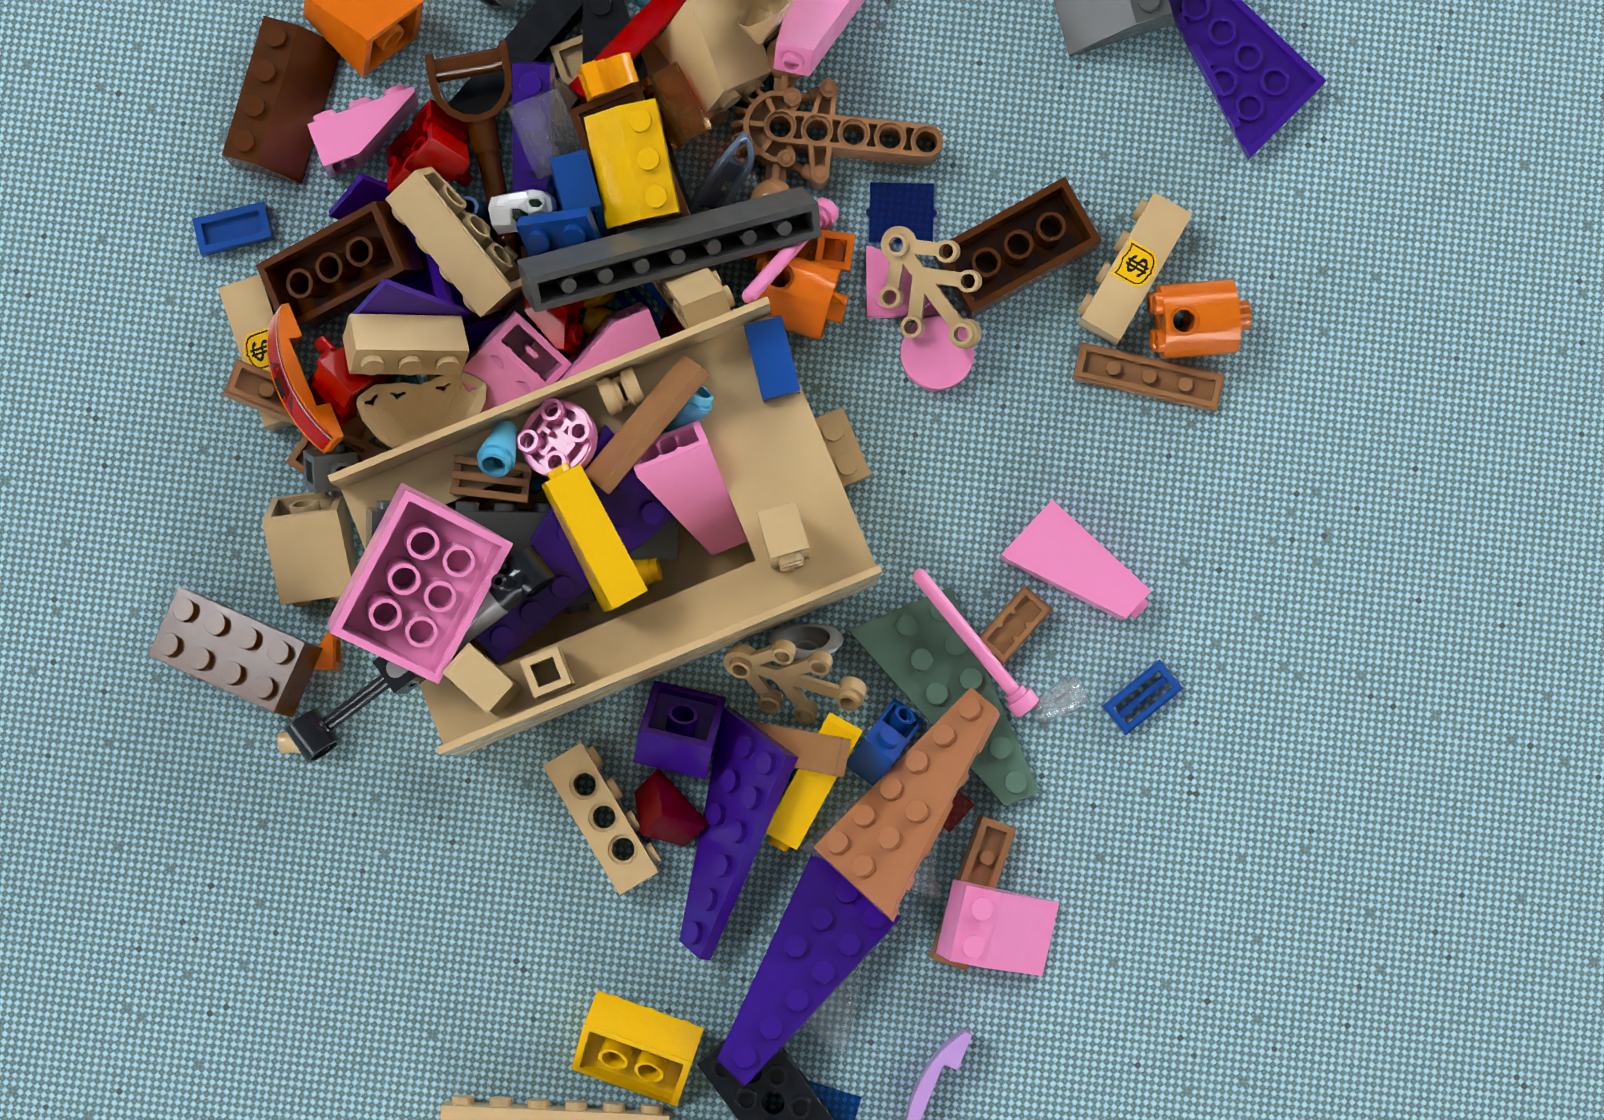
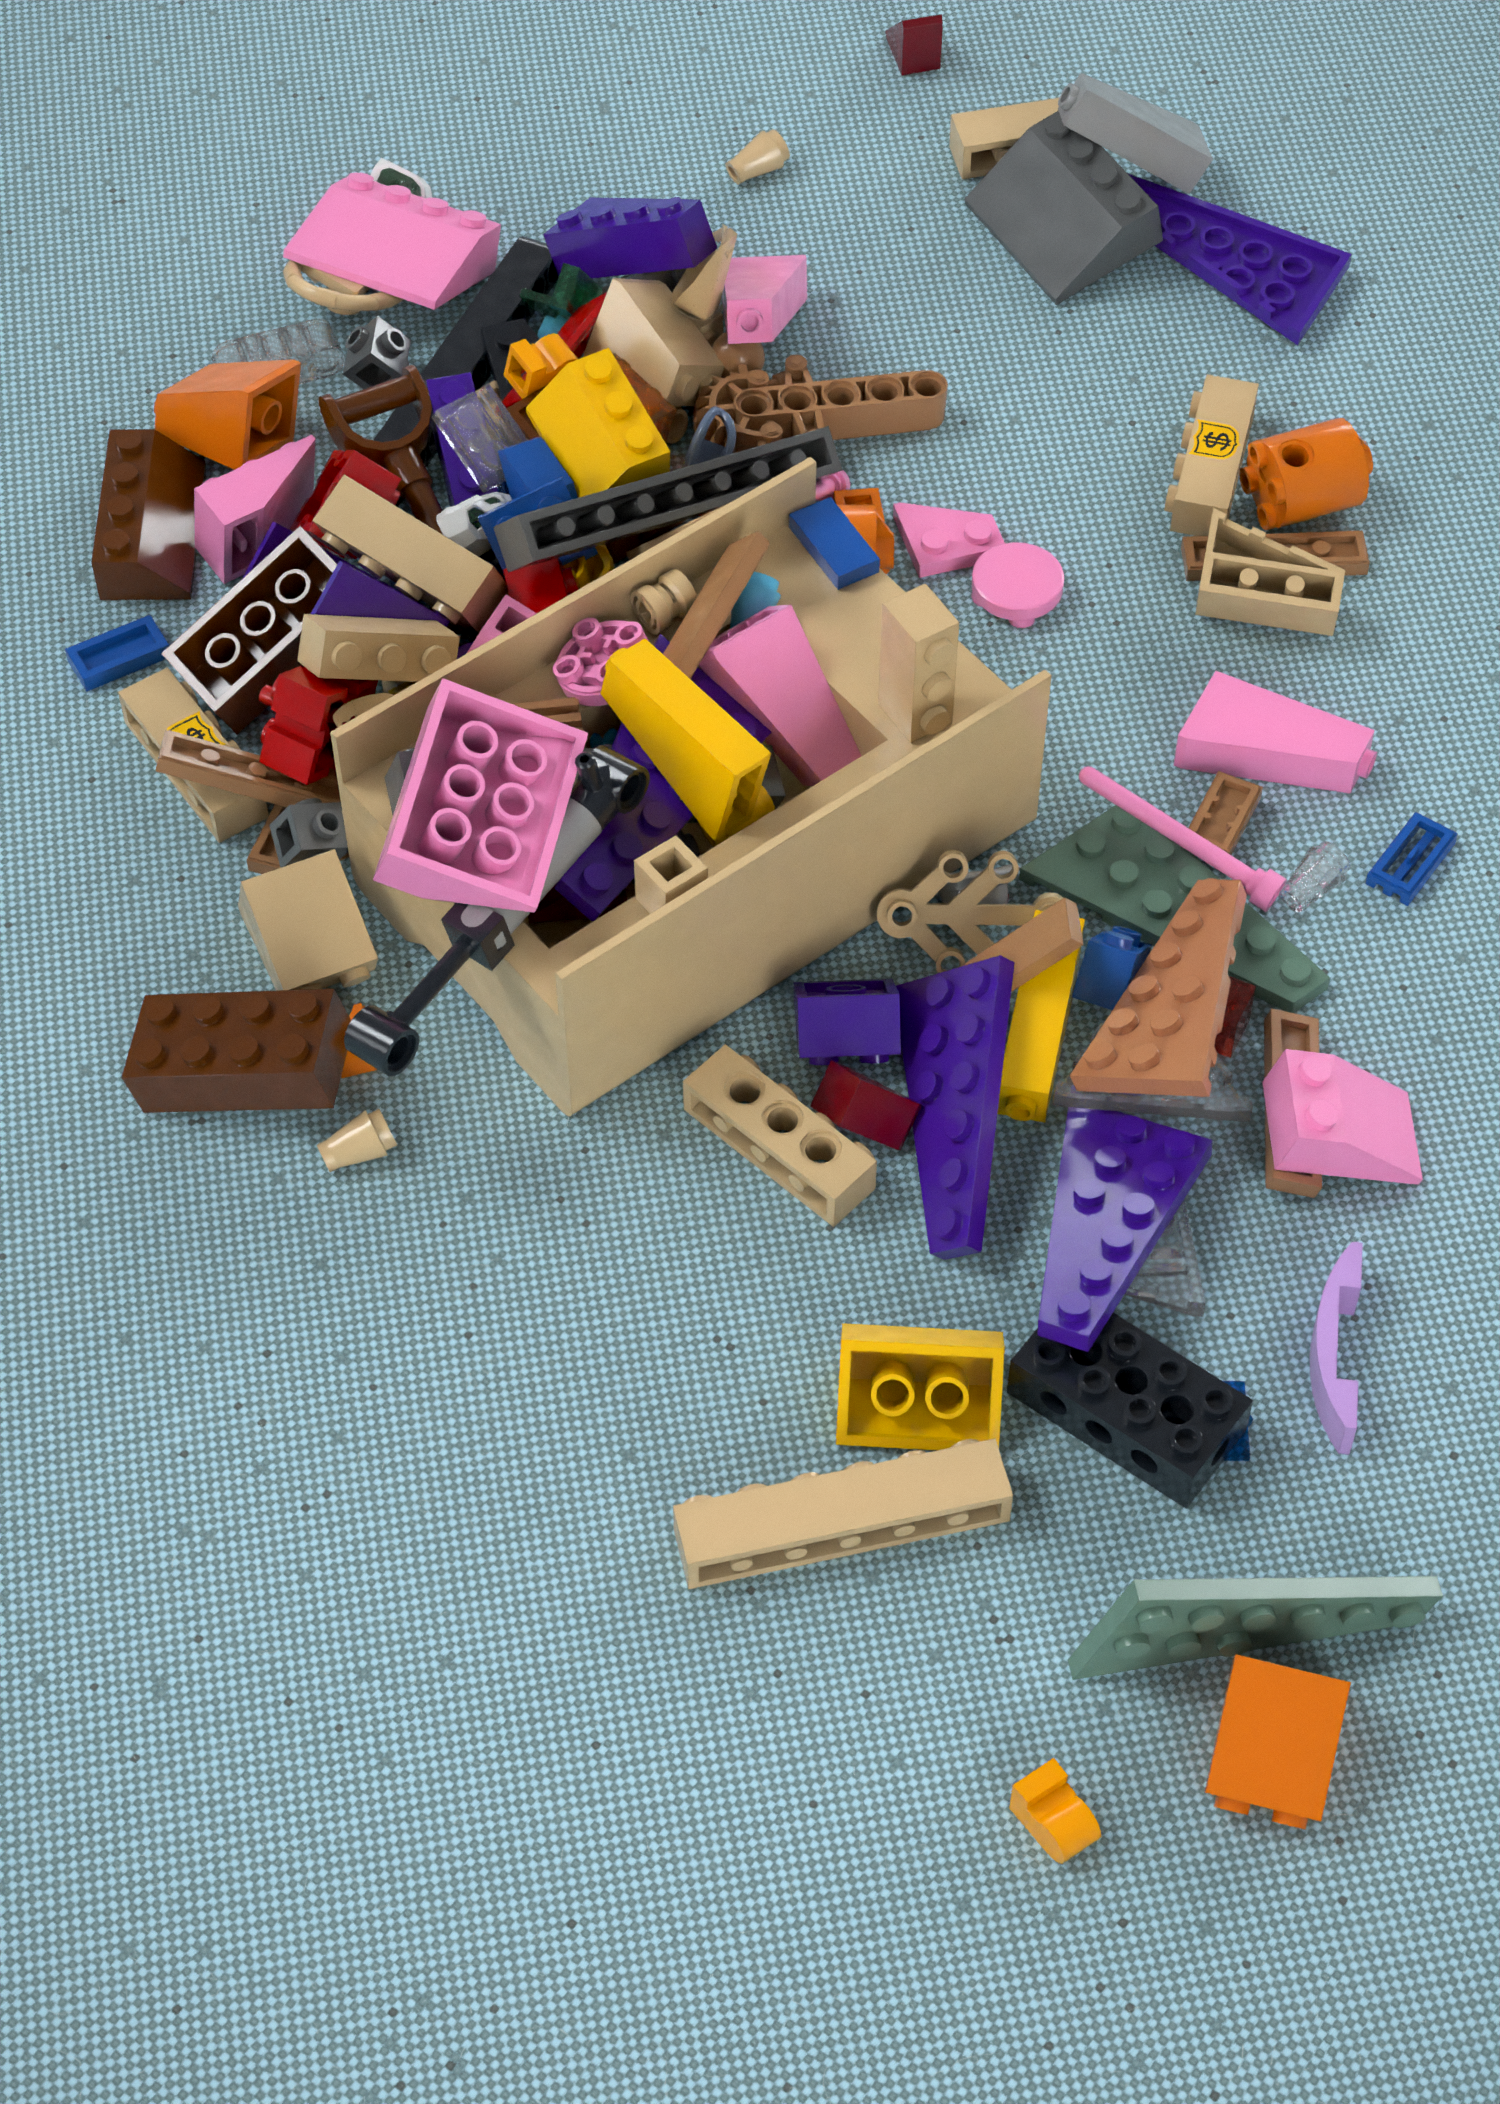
camera: 15 degrees left, 30 degrees down
(313, 420) = (252, 743): slope -> none
(482, 680) = (589, 898): tan slope -> none
(498, 451) = (537, 694): medium azure cone -> none
(901, 205) = (922, 473): clear blue piece -> none
(925, 283) = (982, 500): tan plant -> none
(1021, 246) = (1071, 460): reddish brown brick -> none
(1122, 419) = (1266, 582): none -> tan wedge

